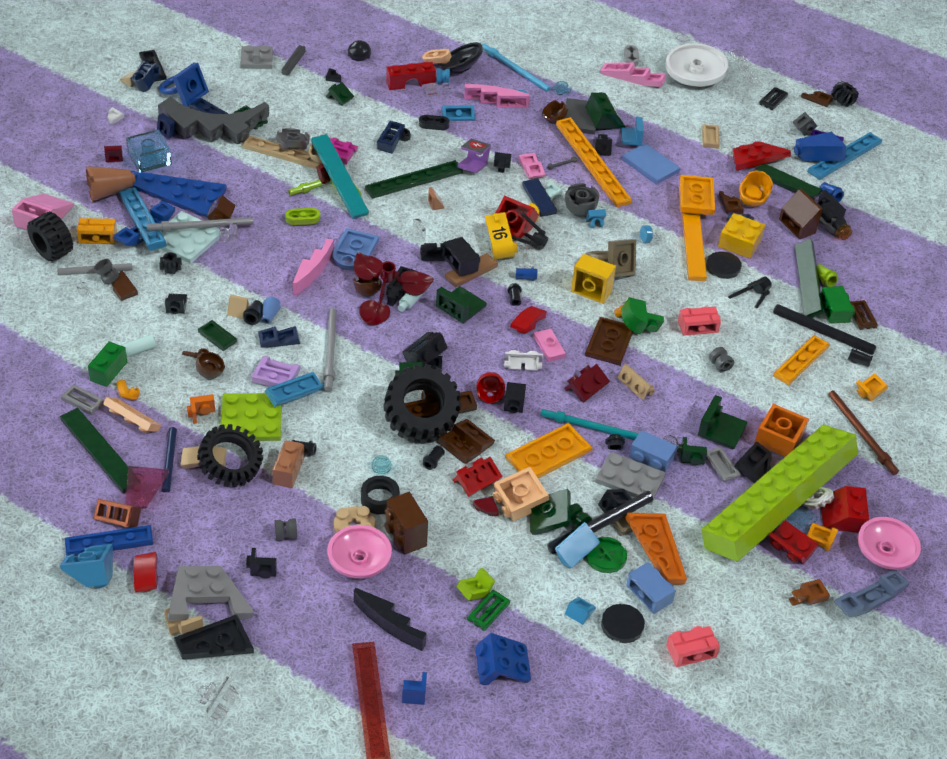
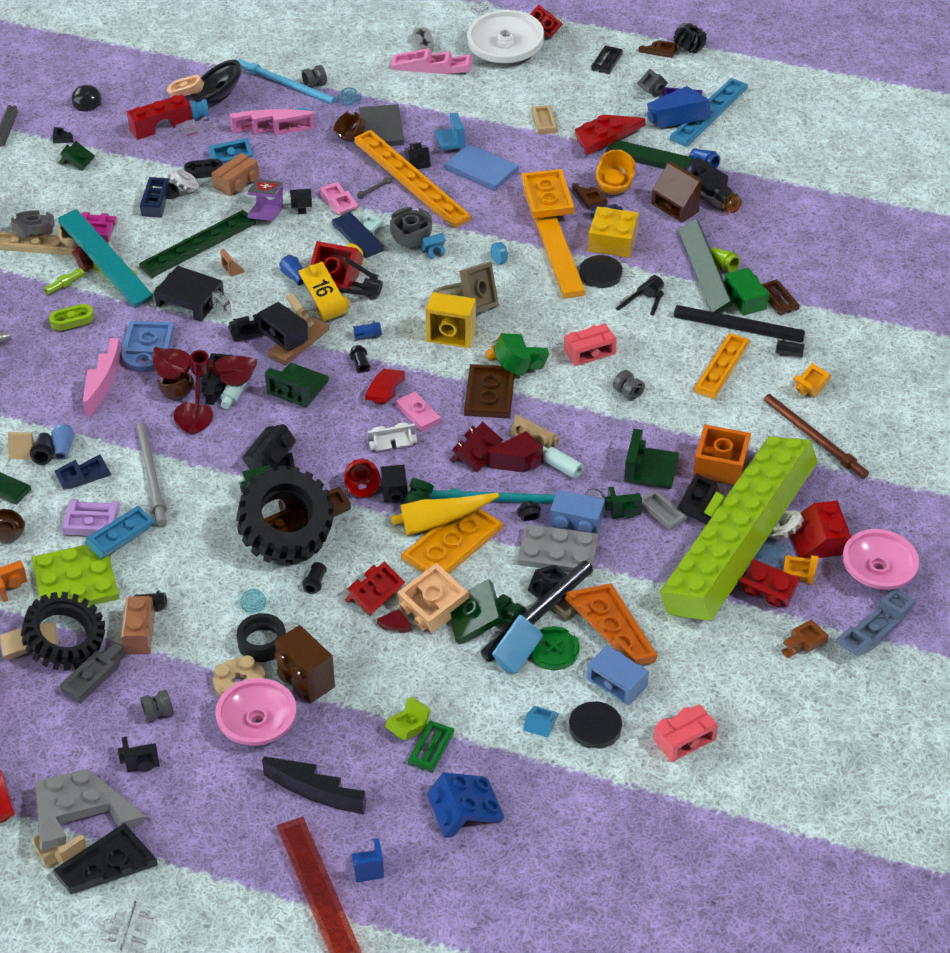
camera: 10 degrees left, 0 degrees up
(244, 493) = (92, 673): none -> dark grey hinge
(396, 214) = (189, 290): none -> black panel
(416, 128) = (183, 180): none -> white gear
(457, 131) = (235, 174): none -> nougat brick
(466, 441) = (348, 549): reddish brown slope -> none
(477, 246) = (299, 309): none -> tan tile
(479, 211) = (290, 266): none -> blue cone
(531, 409) = (419, 490): none -> dark green wheel
(537, 427) = (431, 513): none -> yellow piece
(539, 67) = (314, 76): none -> dark grey wheel
(603, 112) = (408, 115): dark green slope -> none
(617, 395) = (516, 454): none -> dark red slope
(652, 408) = (562, 462): none -> light aqua cylinder
(733, 58) = (547, 20): none -> red slope
(768, 465) = (714, 504): none -> lime tile

